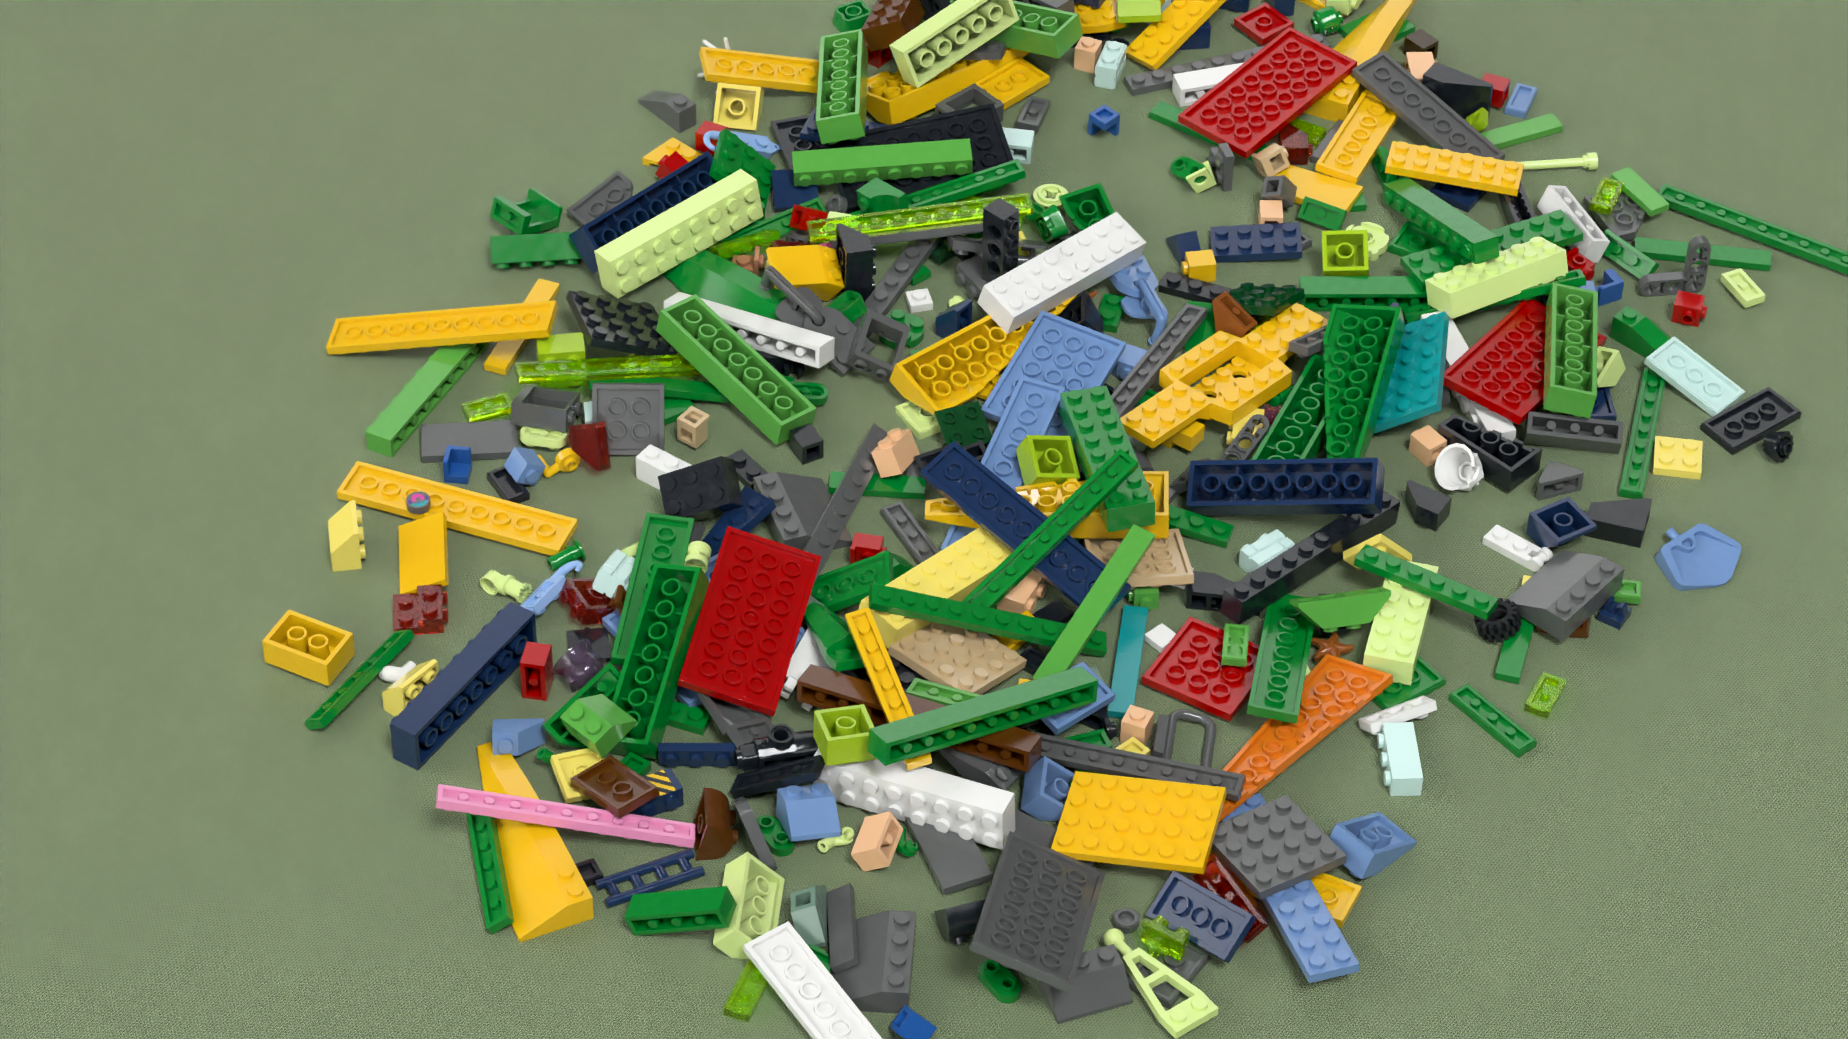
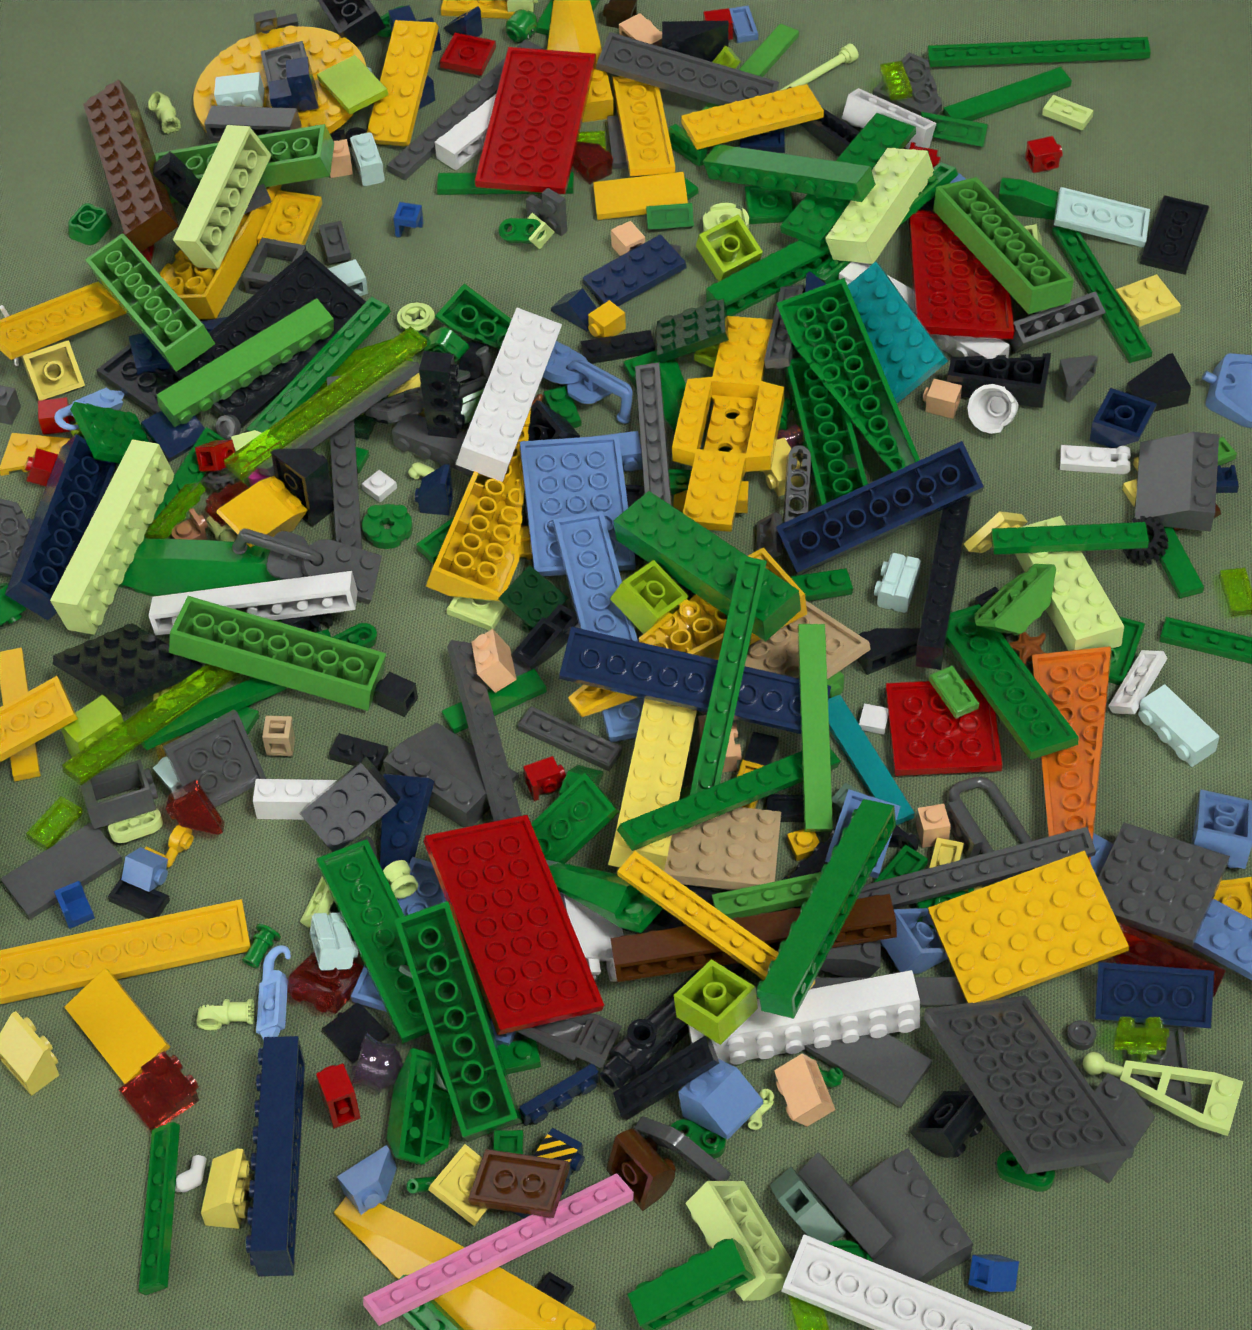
camera: 30 degrees left, 10 degrees up
(308, 647) = (82, 1203): yellow brick -> none
(418, 502) = (70, 971): dark grey tile -> none
(597, 723) = (455, 1123): bright green slope -> none
(618, 599) = (358, 970): reddish brown slope -> none
(657, 866) = (619, 1277): dark blue bar -> none
(850, 305) = (325, 525): green piece -> none
(880, 196) = (271, 398): green arch -> none
(883, 327) = (389, 532): dark grey window -> none
(1231, 316) = (689, 361): dark orange slope -> none
(1271, 160) = (586, 185): tan brick -> none
(1279, 189) = (620, 211): dark grey brick -> none
(1427, 505) = (992, 458): black slope -> none
(1611, 288) = (965, 163): blue panel -> none
(1641, 192) = (918, 63): bright green tile -> none
(1685, 278) = (1021, 128): dark grey beam -> none
(1778, 445) = (1221, 247): black piece -> none

